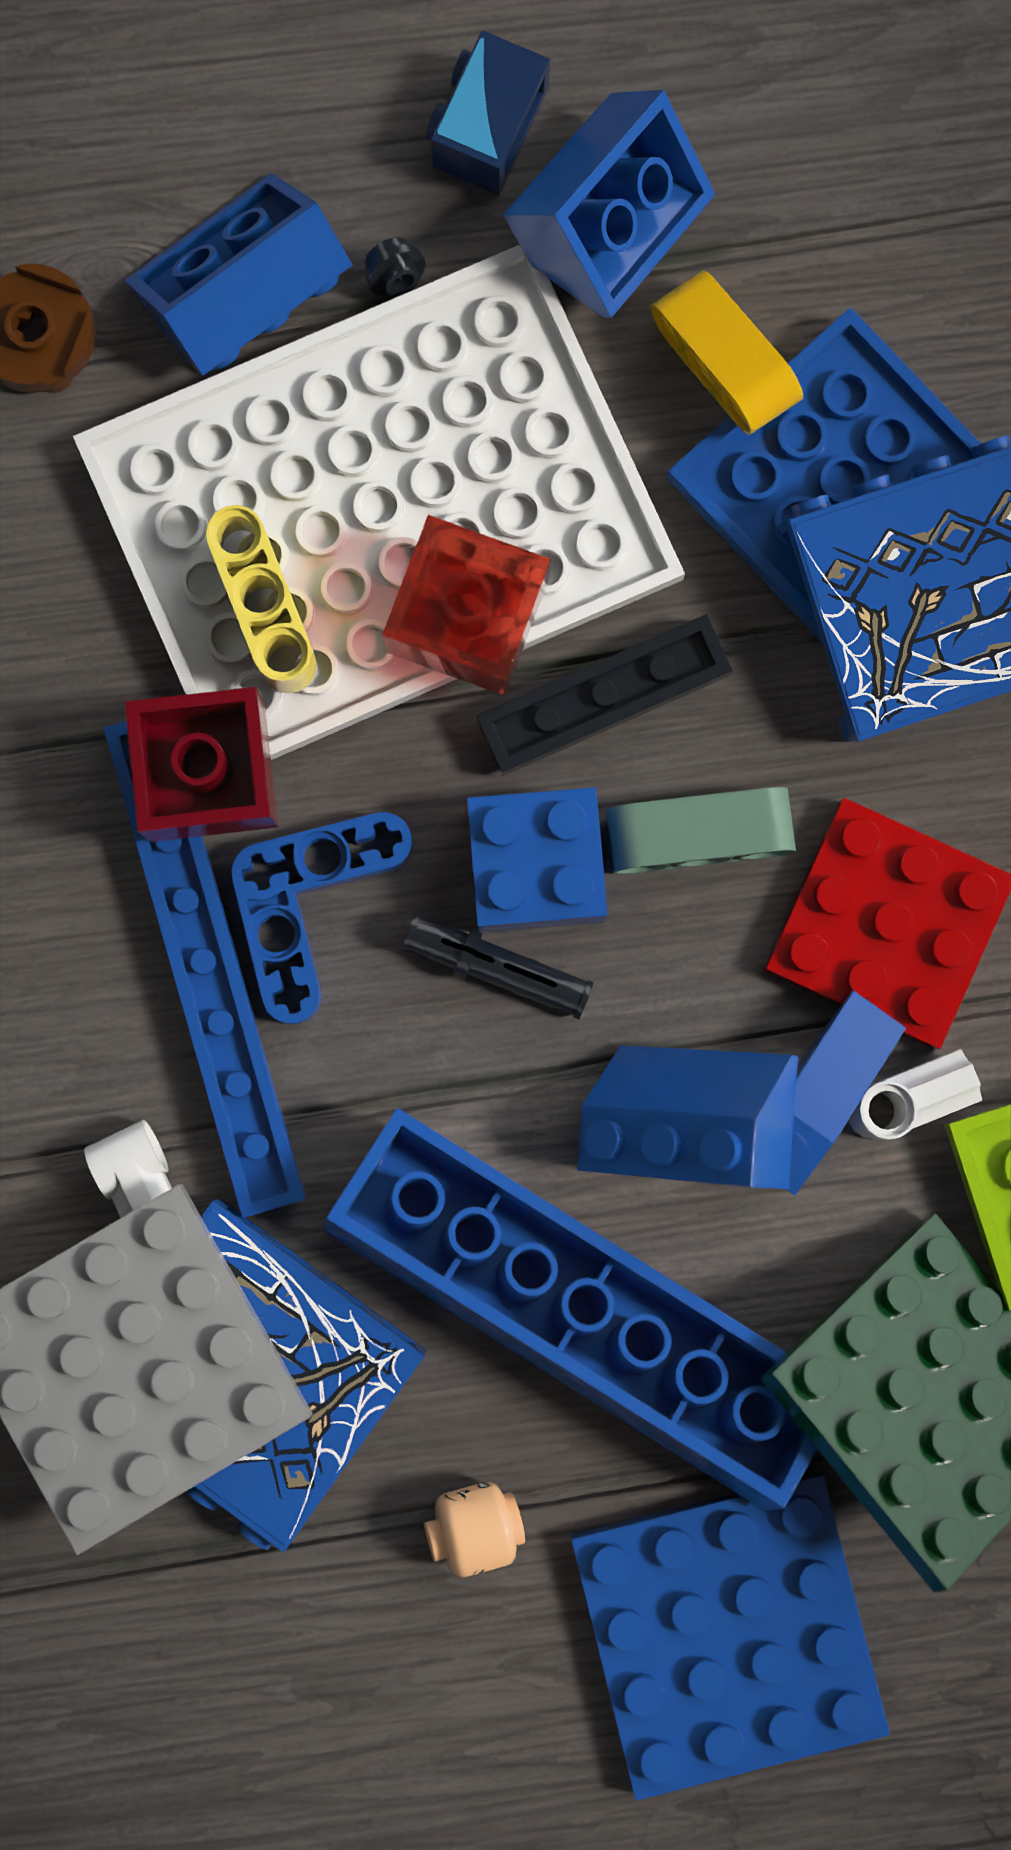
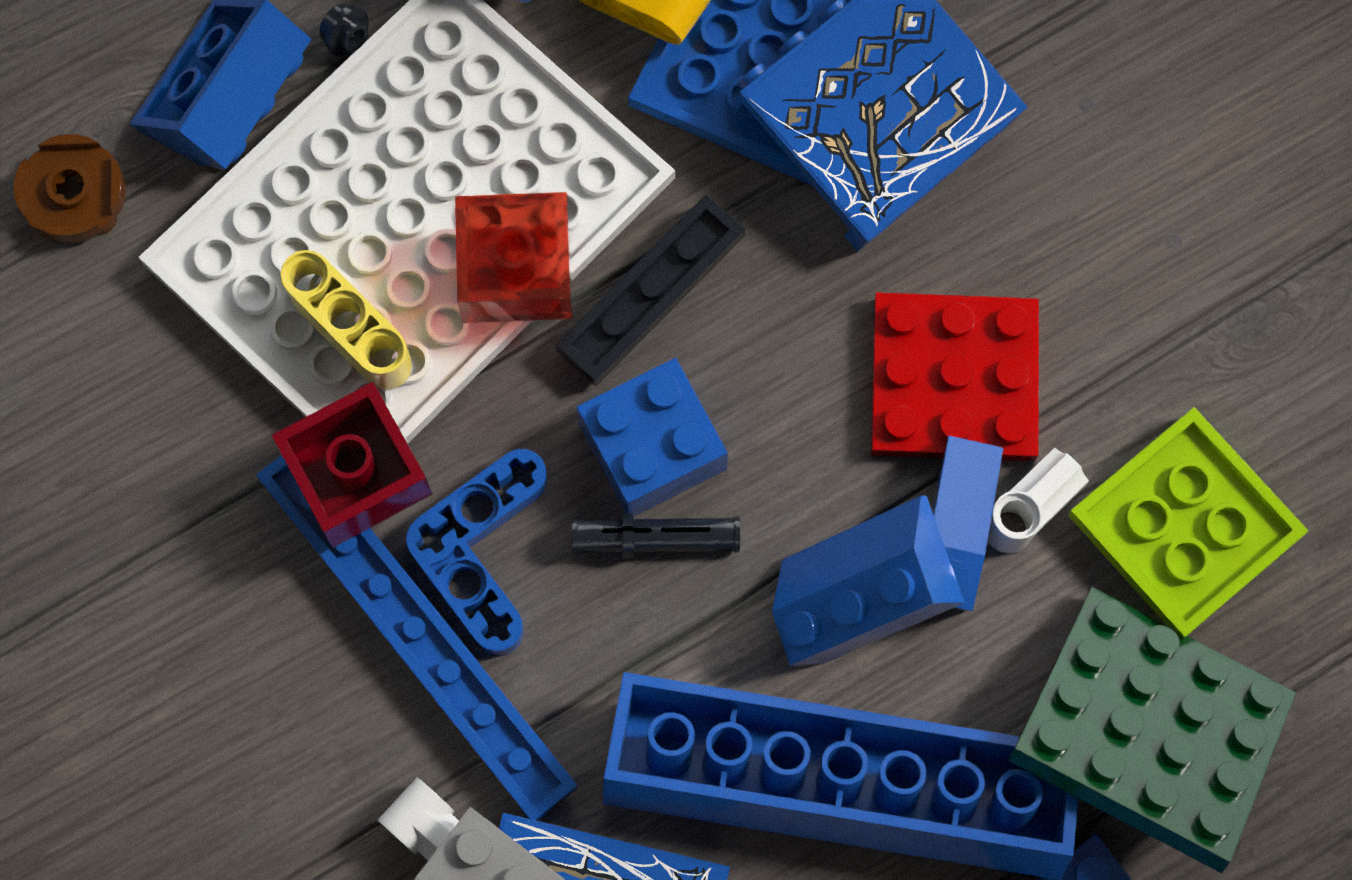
camera: 20 degrees left, 10 degrees down
(700, 830) = (773, 363): sand green beam -> none

